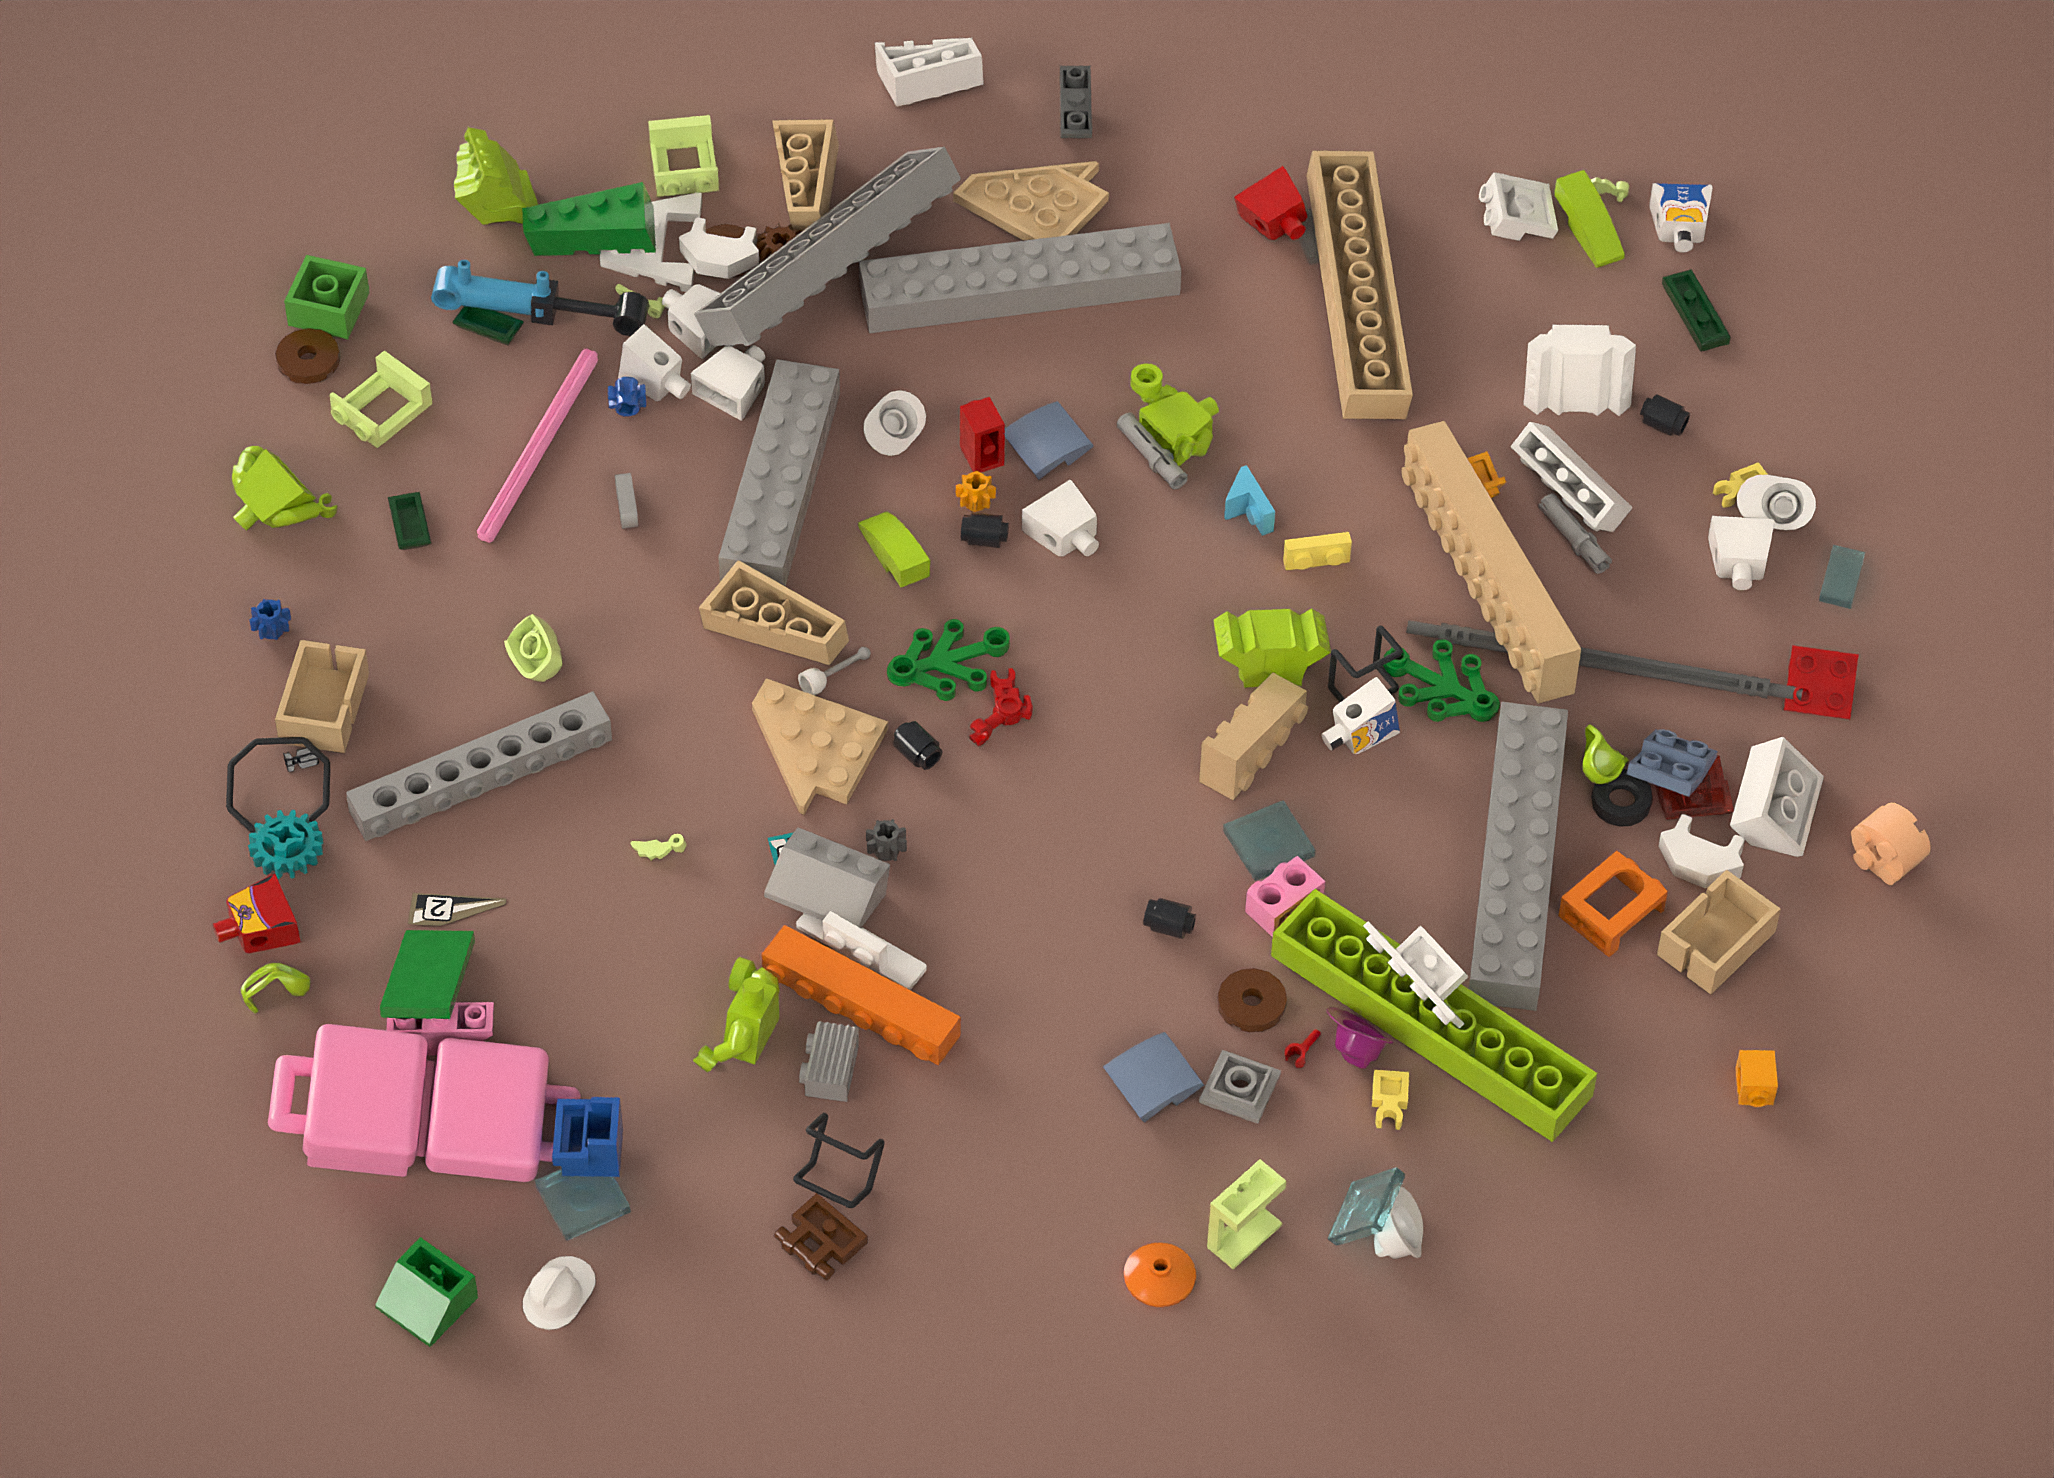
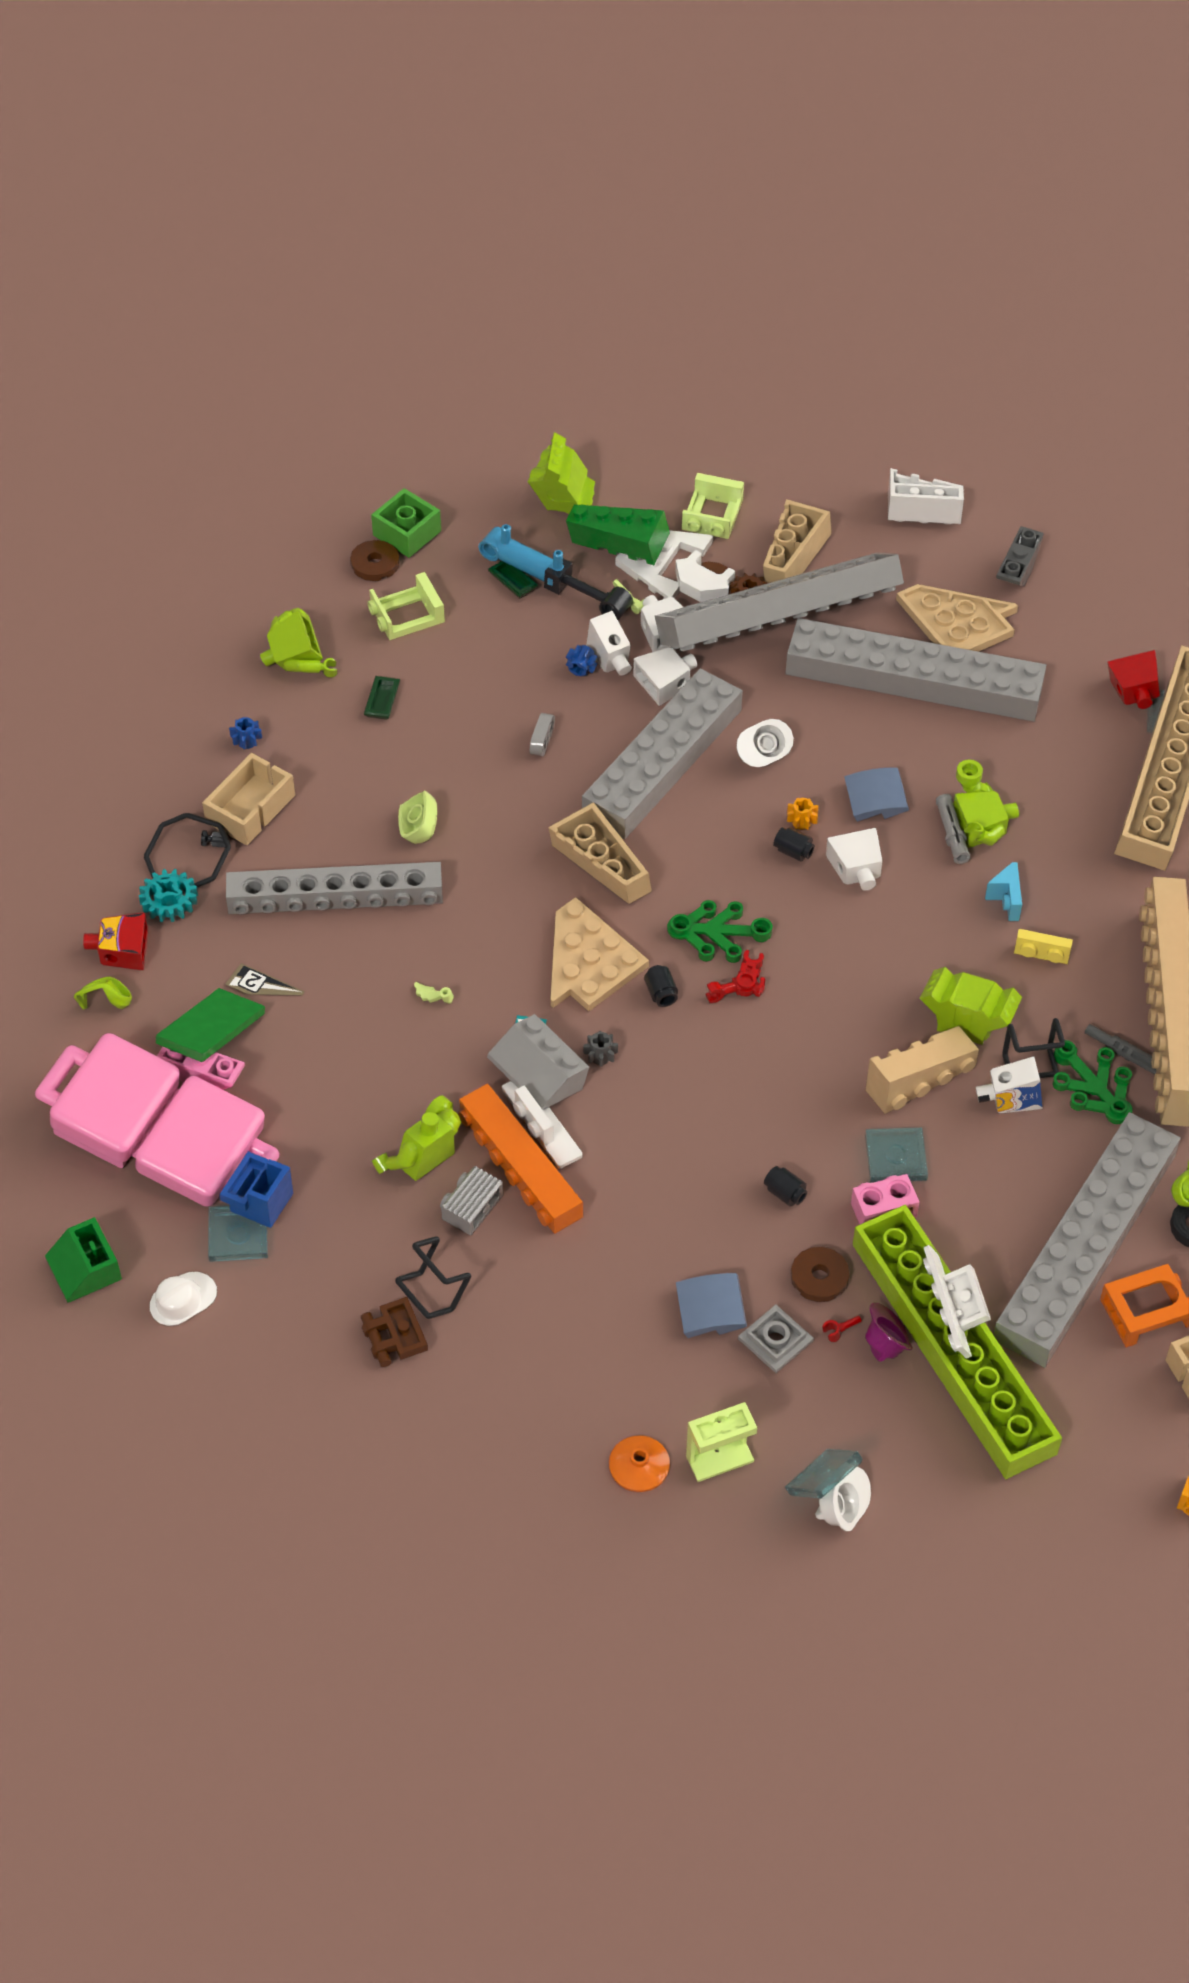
camera: 25 degrees right, 0 degrees up
(537, 446) = (500, 675): bright pink axle -> none
(814, 680) = (611, 911): white hinge -> none
(896, 548) = (721, 835): lime slope -> none
(982, 435) = (825, 773): red brick -> none
(1390, 1095) = (890, 1390): light yellow plate -> none

